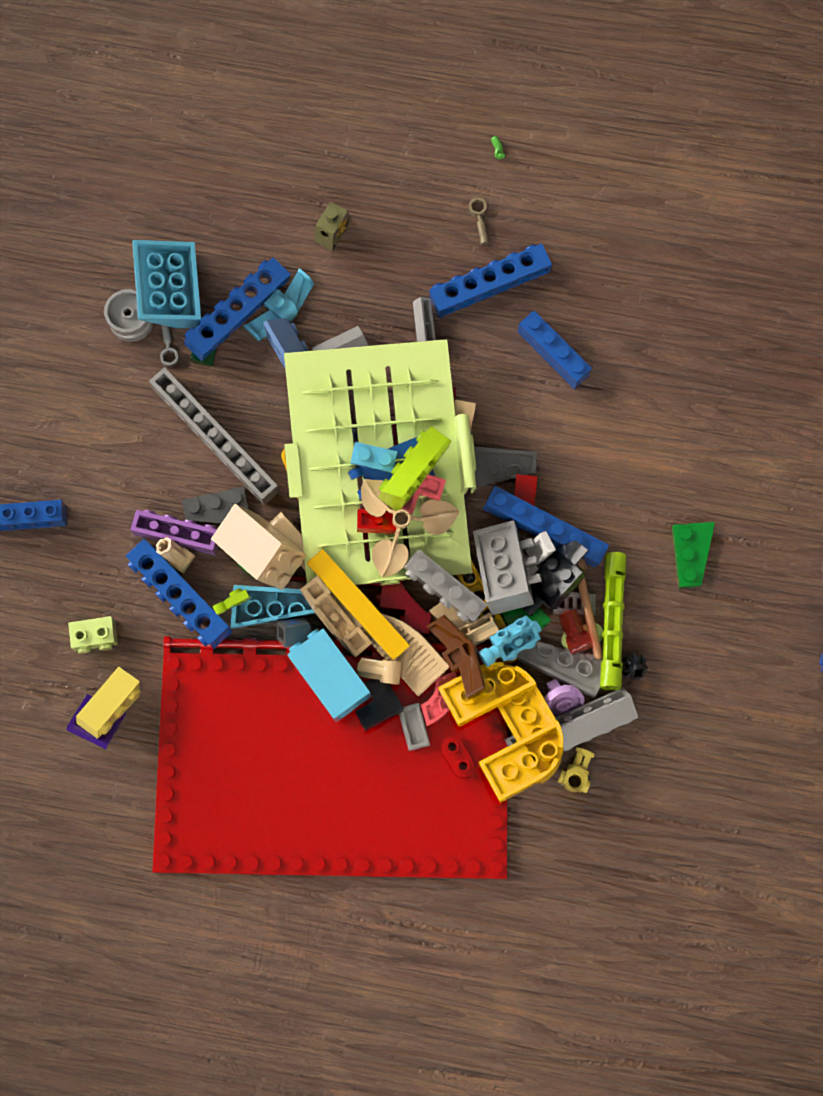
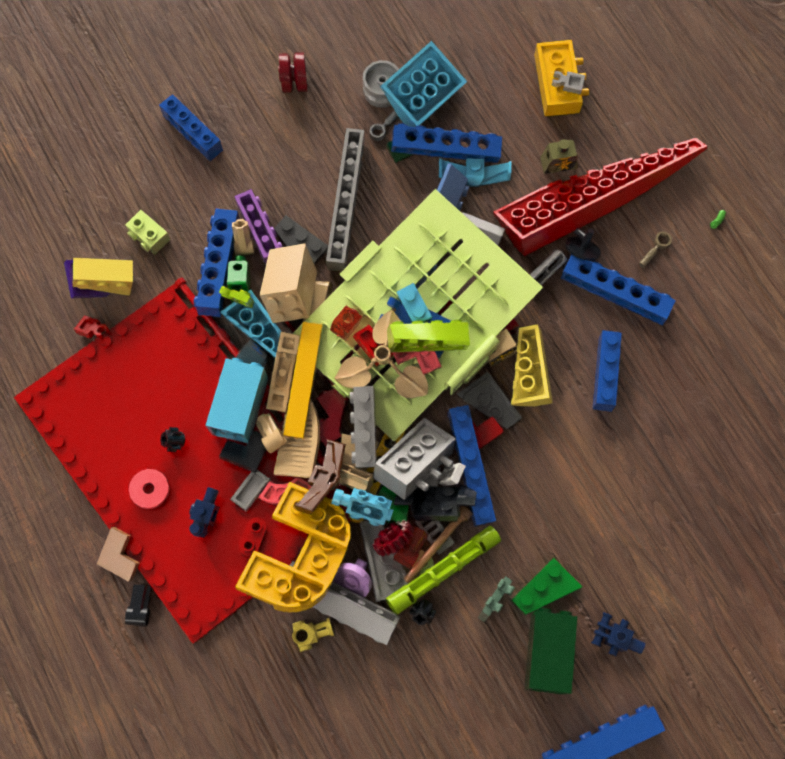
camera: 50 degrees right, 5 degrees down
(50, 383) = (292, 72): none -> dark red wheel
(142, 754) = (89, 327): none -> red plate
(208, 585) = (238, 274): none -> green torso
(257, 163) = (557, 57): none -> yellow piece
(275, 156) = (572, 82): none -> light grey plate
(315, 758) = (172, 439): none -> black gear
(338, 800) = (141, 480): none -> coral tile
(343, 534) = (342, 328): none -> clear red brick
(377, 890) = (113, 556): none -> medium nougat tile
(384, 243) = (582, 199): none -> red wedge
(405, 780) = (204, 513): none -> dark blue piece
(429, 276) = (582, 245): none -> black shield
(440, 902) = (138, 611): none -> black piece
(507, 413) = (531, 379): none -> light yellow wedge
(557, 639) = (393, 538): none -> dark red gear
(674, 597) = (492, 603): none -> sand green tile
(749, 590) = (551, 652): none -> dark green brick
(776, 528) = (618, 637): none -> dark blue piece

